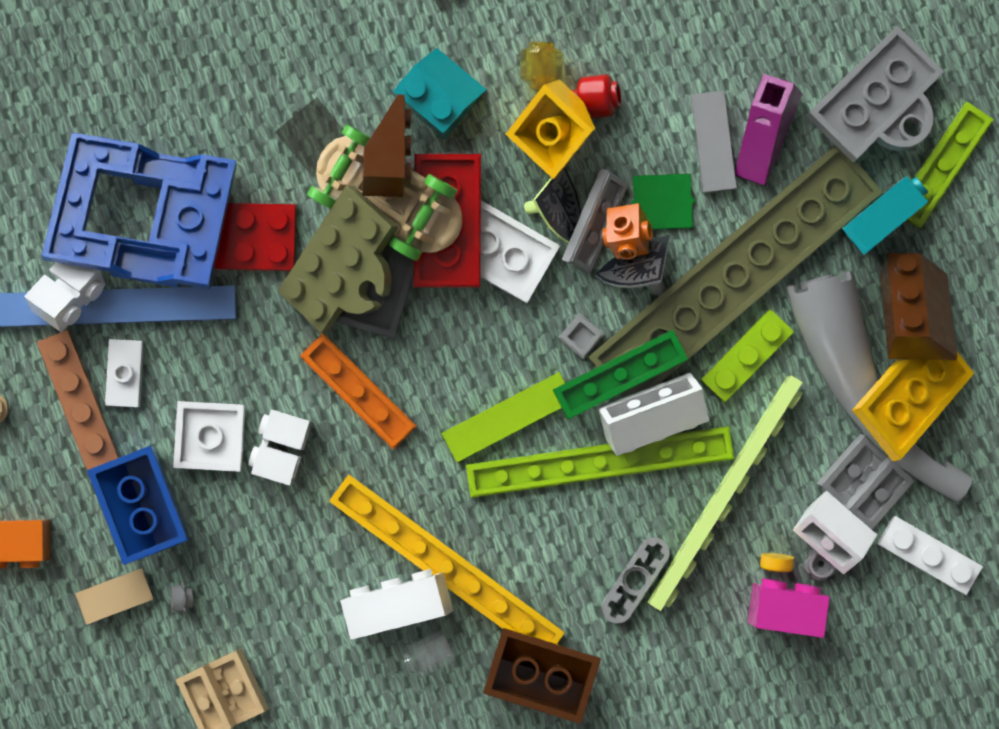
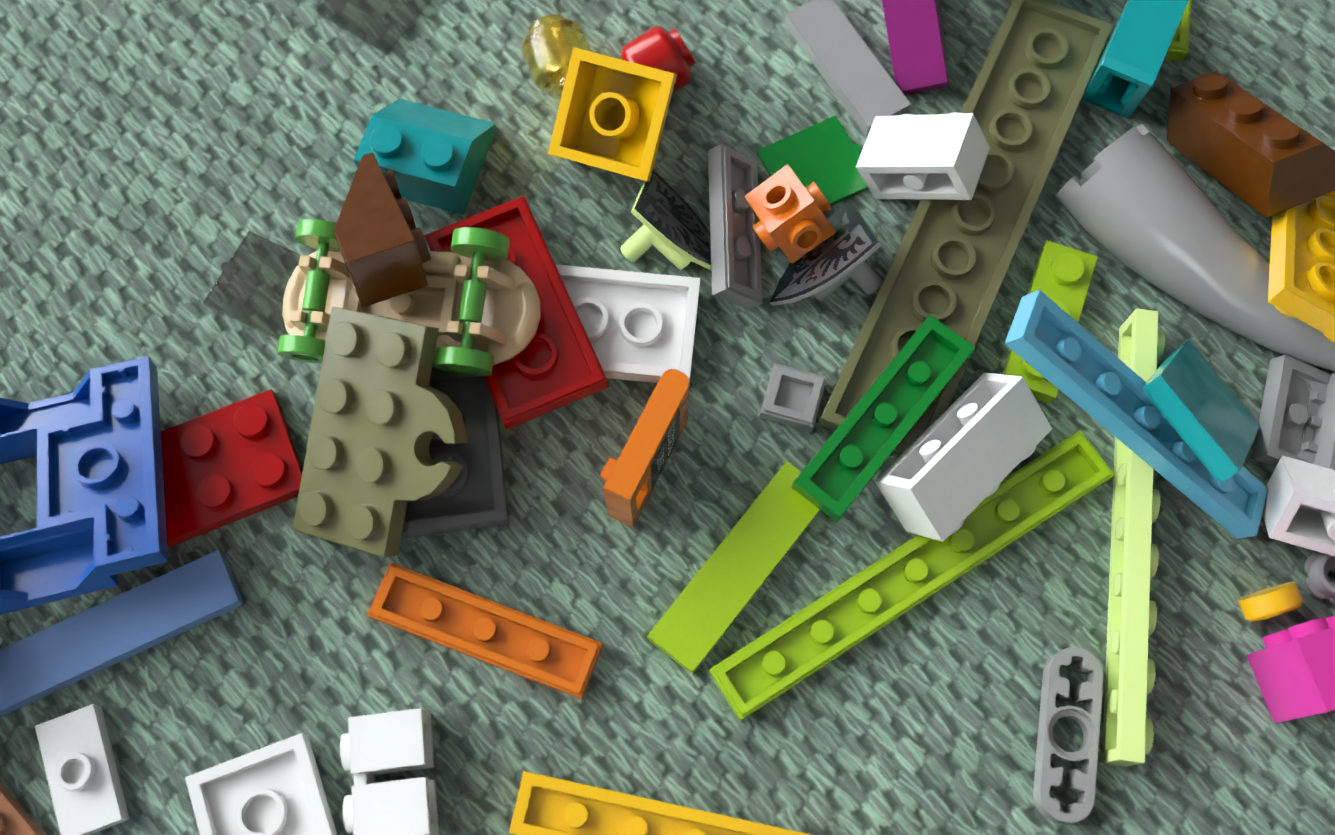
camera: 25 degrees left, 15 degrees down
(466, 350) = (647, 449): none -> orange container
(720, 231) = (923, 156): none -> white brick
(749, 439) = (1116, 400): none -> medium azure plate
(791, 448) = (1203, 411): none -> teal tile

